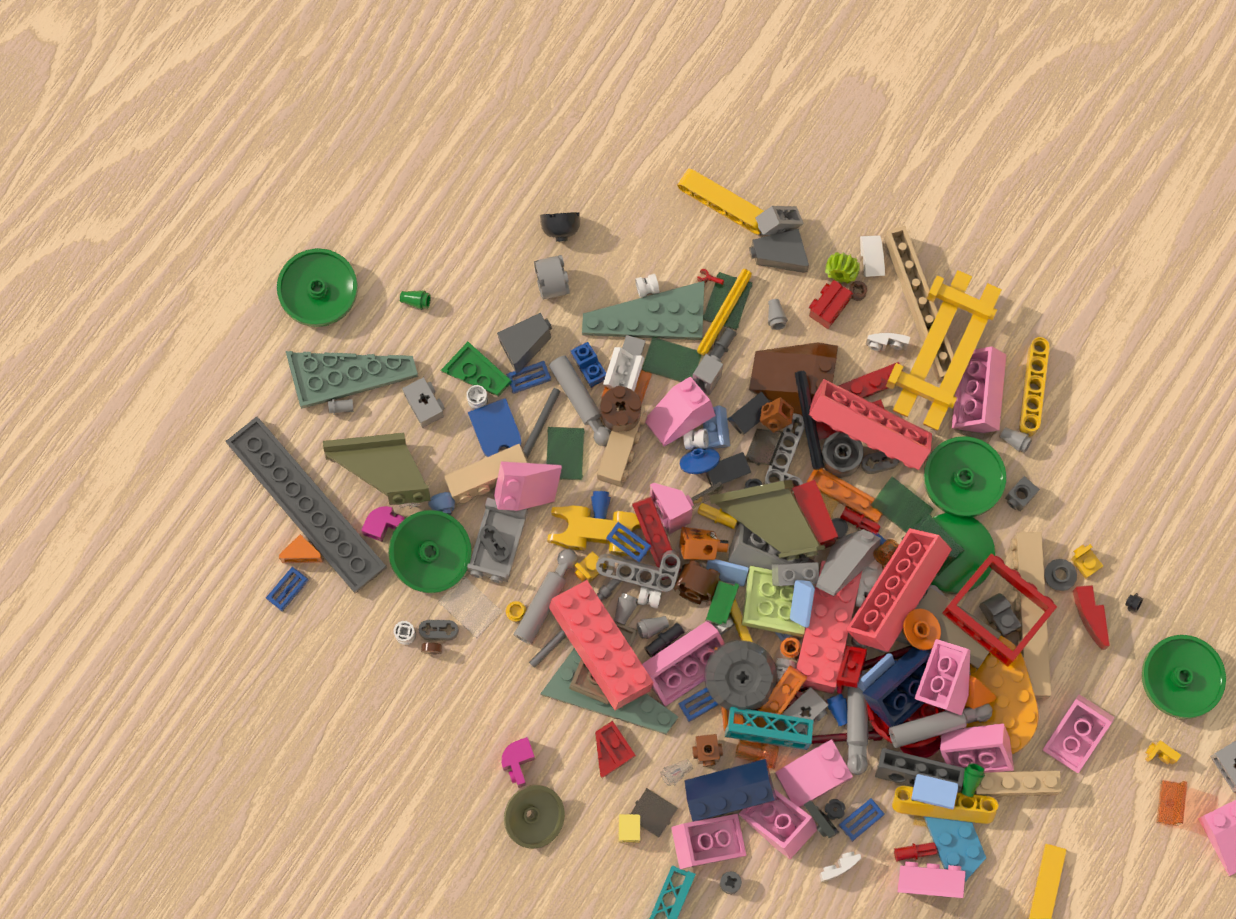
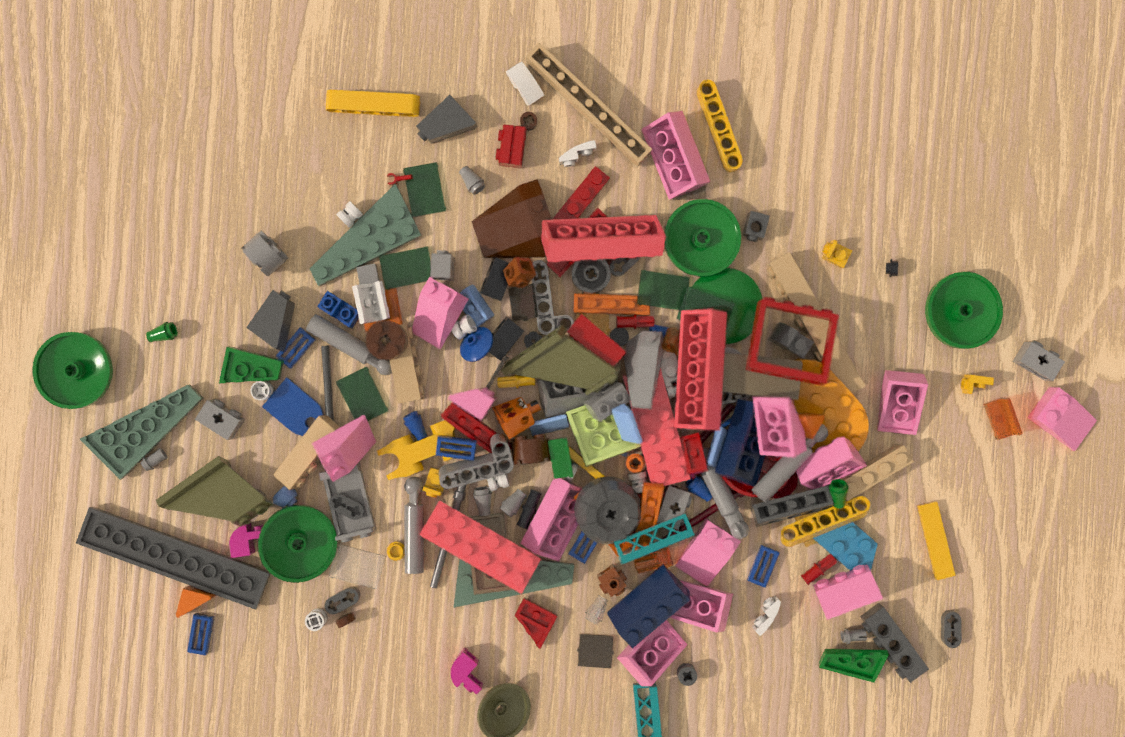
camera: 25 degrees left, 15 degrees up
(560, 225) = (246, 201): black cylinder -> none
(629, 828) = (584, 678): light yellow panel -> none
(721, 346) = (440, 233): dark grey axle -> none
(724, 312) = (427, 202): yellow axle -> none
(779, 220) = (429, 96): light grey brick -> none
(809, 422) = (553, 267): black axle -> none
(825, 825) = (737, 590): pearl dark grey wing -> none
(835, 803) = (733, 570): black plate -> none
(842, 267) = (505, 108): lime gear -> none
(914, 383) = (620, 182): yellow fence -> none
(927, 625) = (742, 390): orange dish -> none
(934, 791) = (814, 520): light blue slope -> none
(1018, 440) = (727, 180): light grey cone -> none
(1056, 583) = (811, 279): dark grey piece -> none
(1092, 615) = (864, 298): red slope -> none

